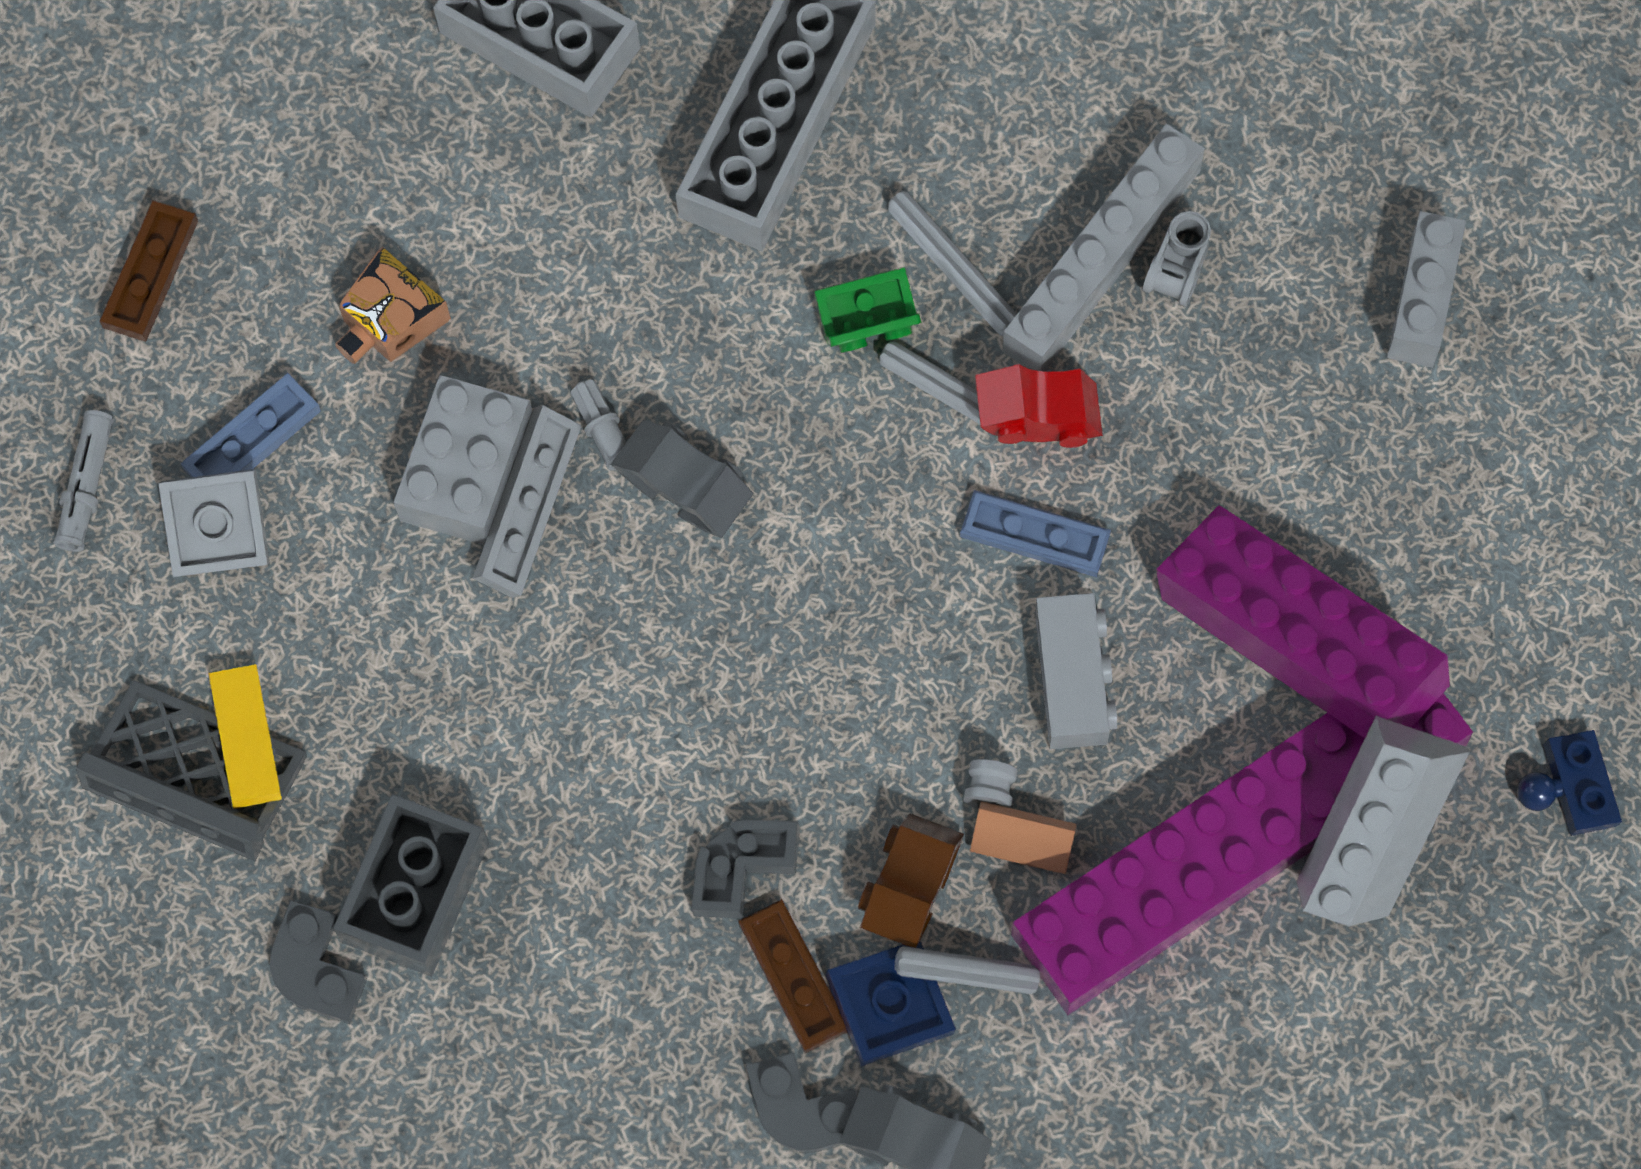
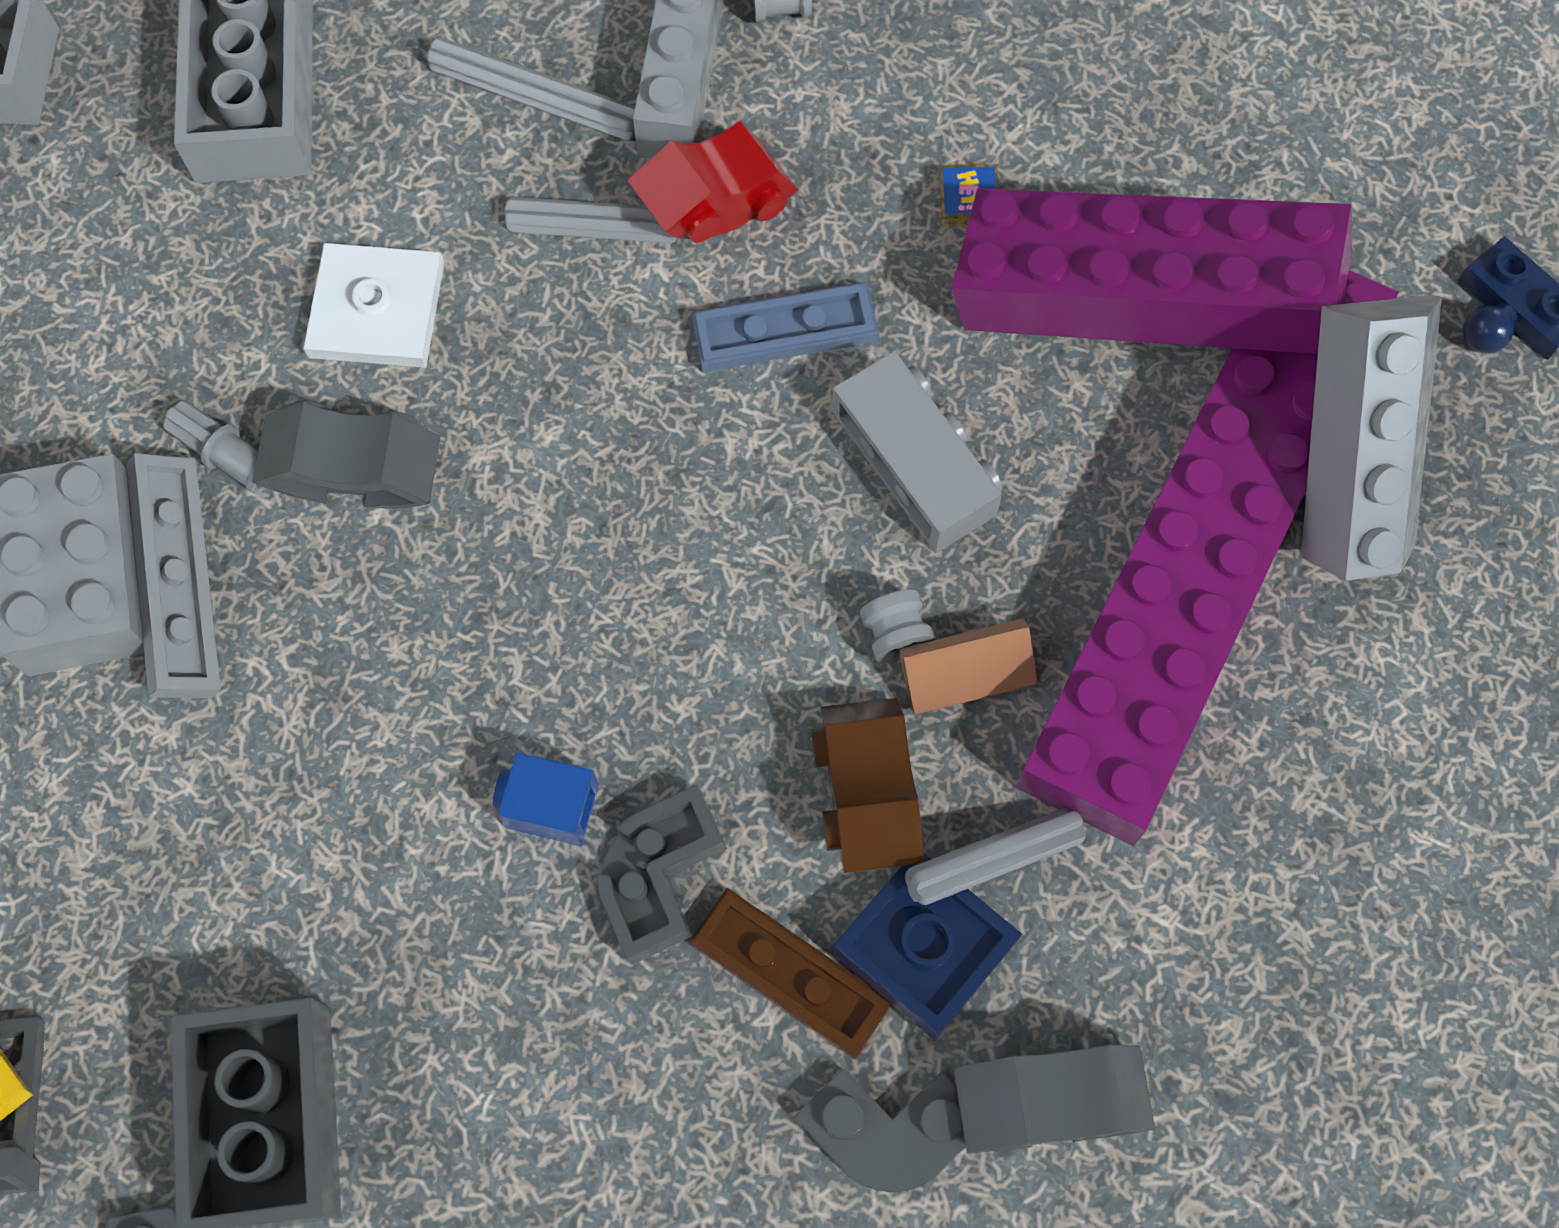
camera: 30 degrees left, 0 degrees up
(695, 779) = (546, 798): none -> blue brick
(757, 373) = (374, 305): none -> white plate
(866, 309) = (462, 175): green bracket -> none
(1223, 492) = (958, 190): none -> tile

